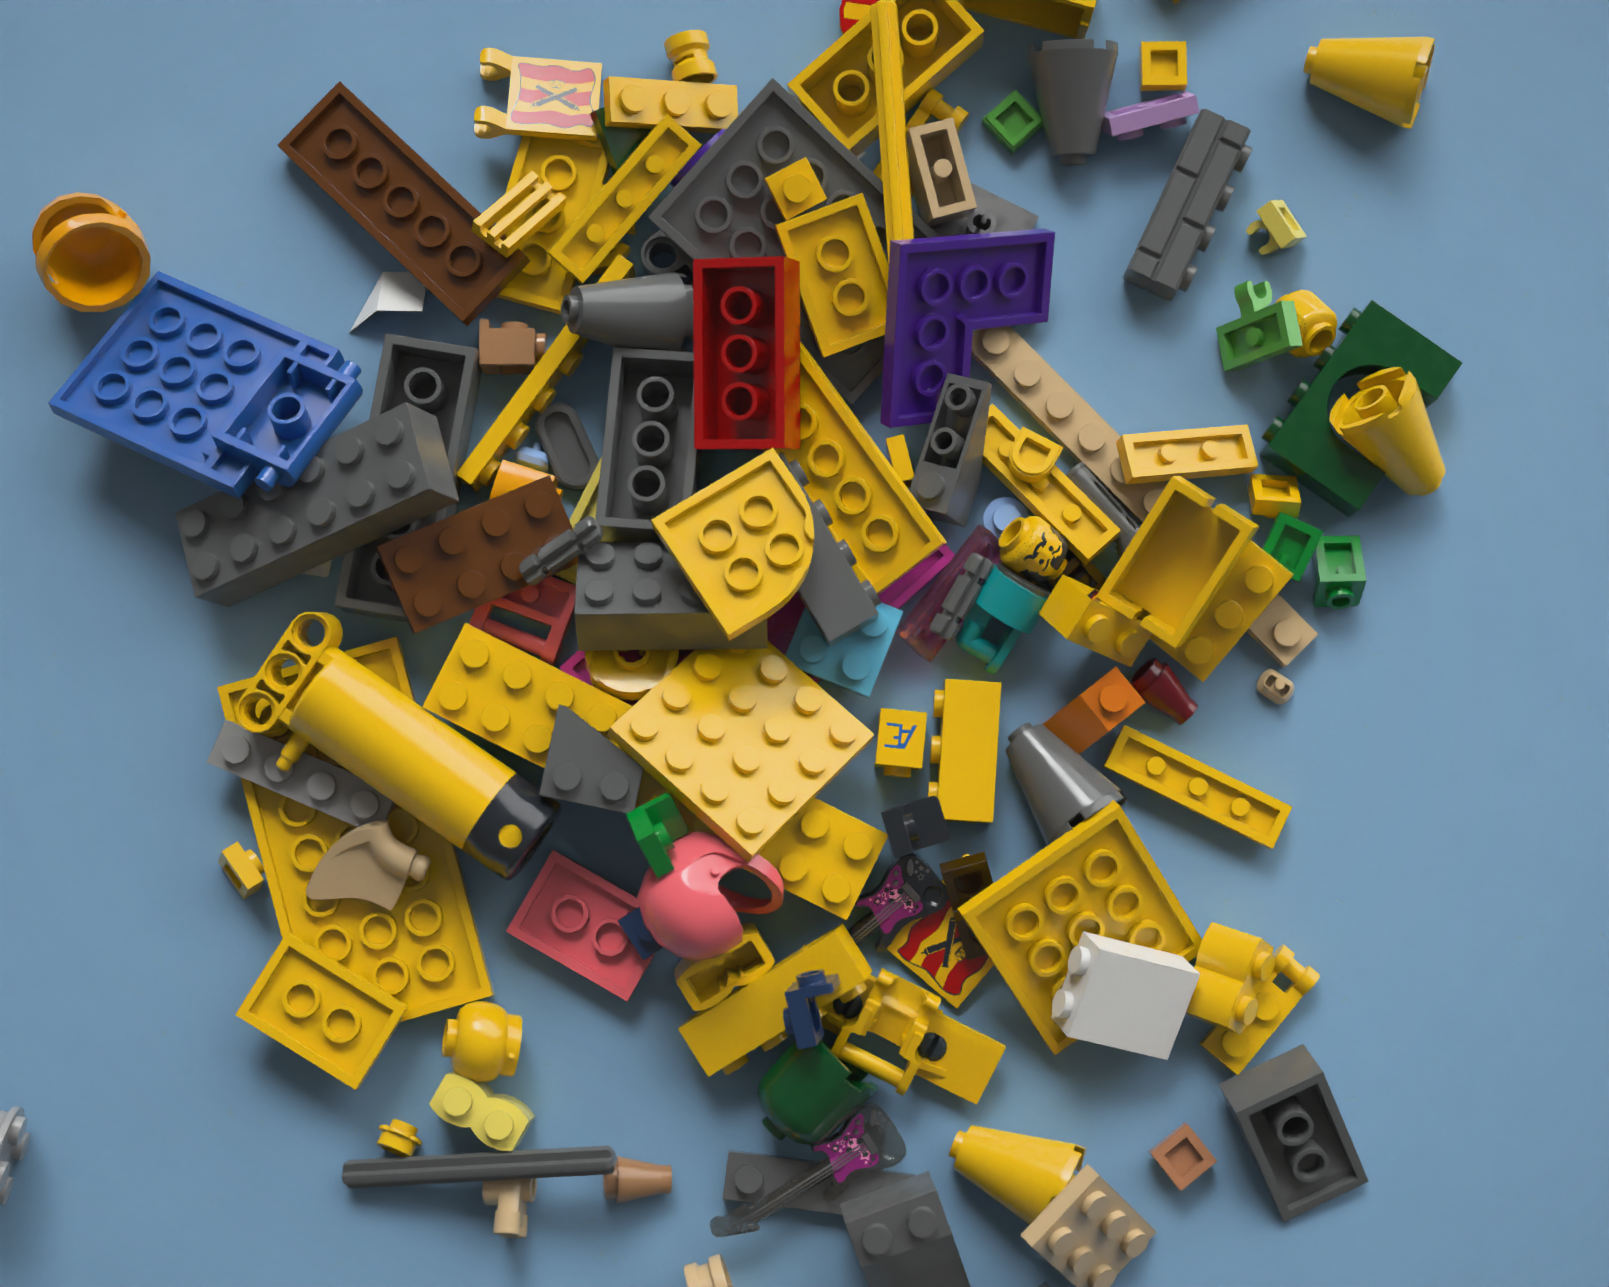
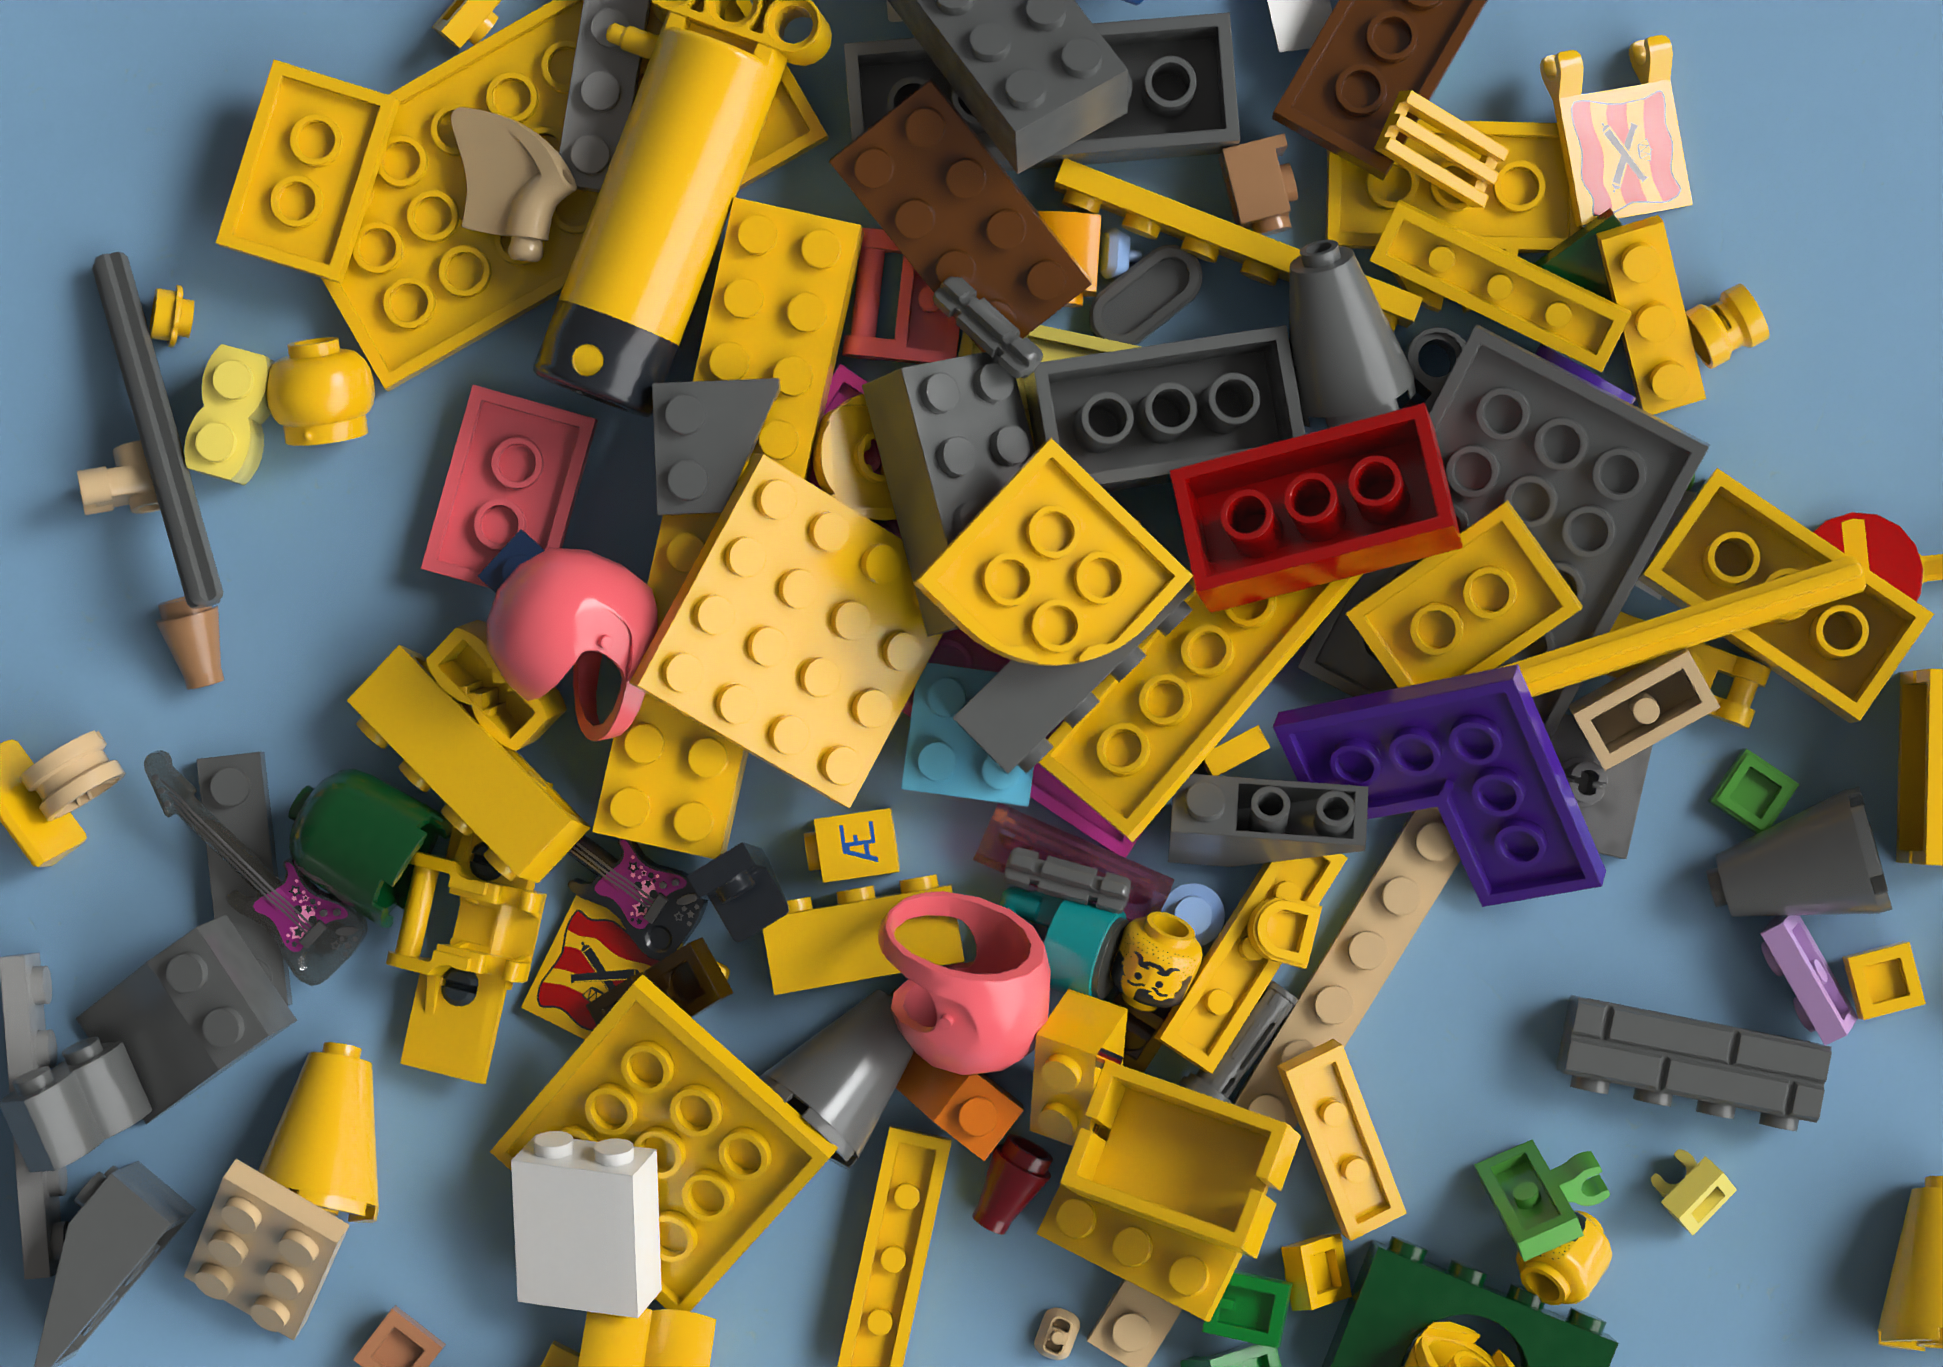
camera: 80 degrees right, 5 degrees up
(655, 829) = (641, 547): green bracket -> none
(795, 188) = (1564, 516): yellow plate -> none
(802, 1014) = (454, 803): dark blue bracket -> none
(1039, 679) = (974, 1012): none -> coral piece

